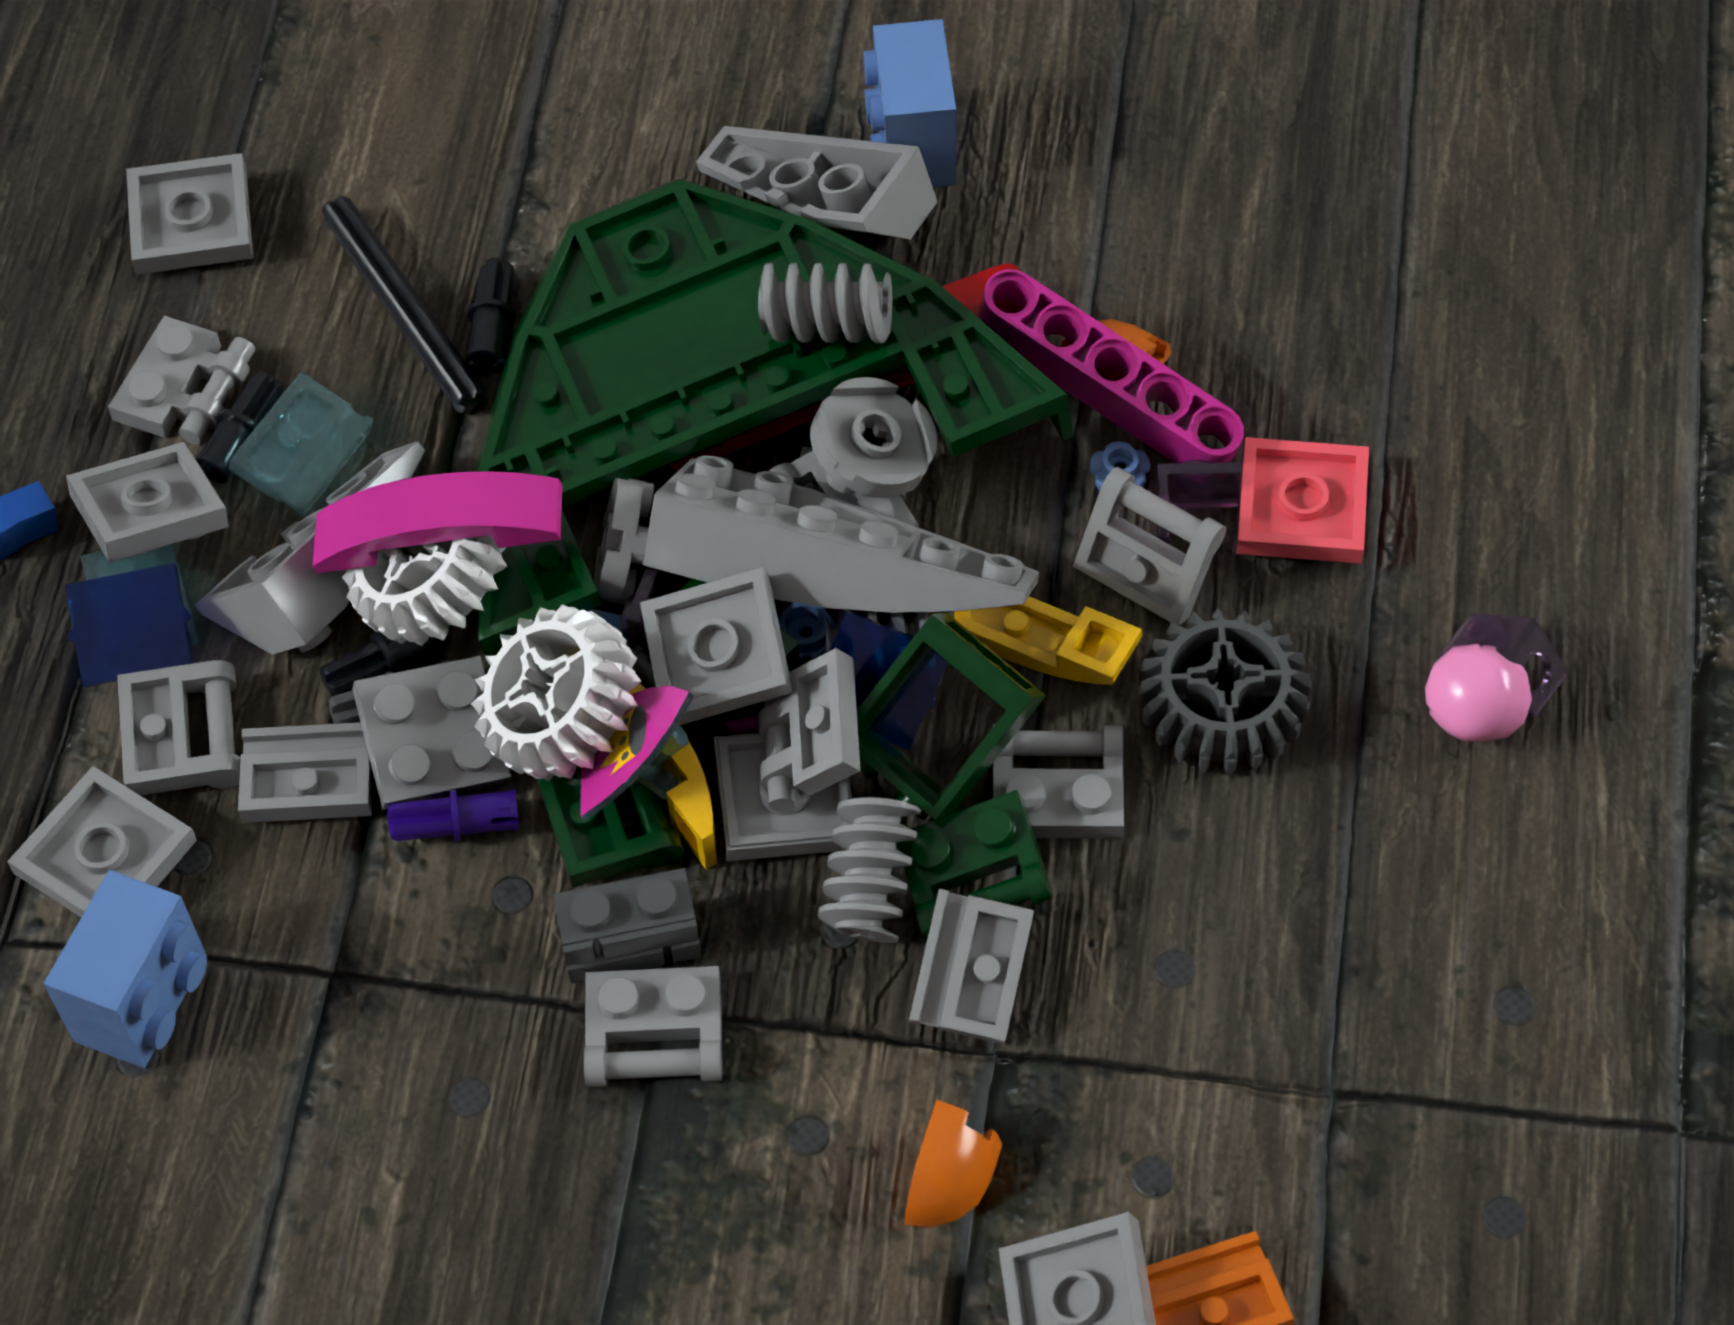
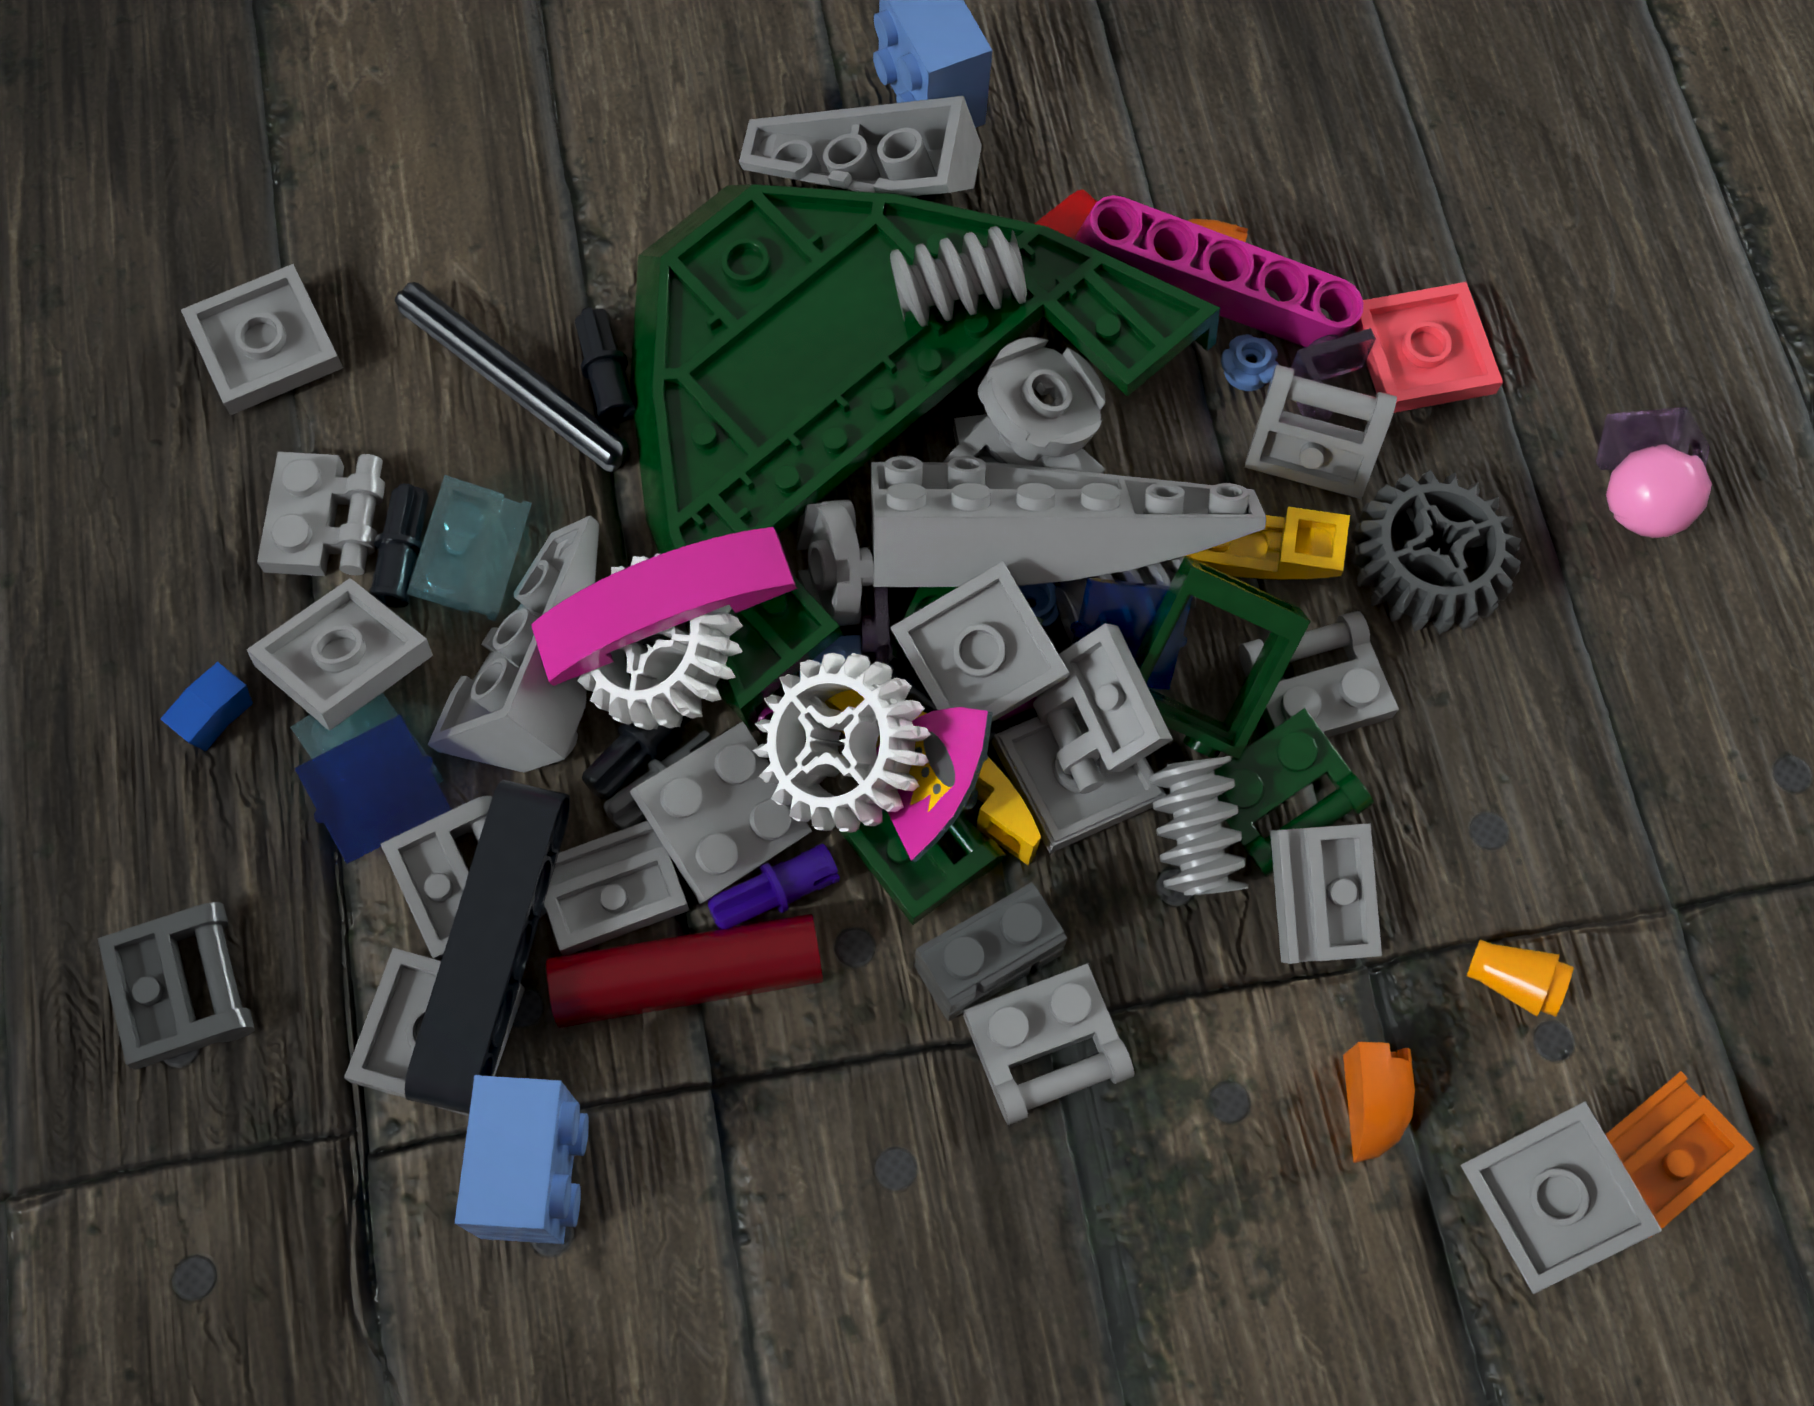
camera: 25 degrees left, 10 degrees up
(176, 774) = (488, 945): none -> black beam
(345, 865) = (683, 970): none -> dark red brick
(1140, 1103) = (1522, 975): none -> light orange cone

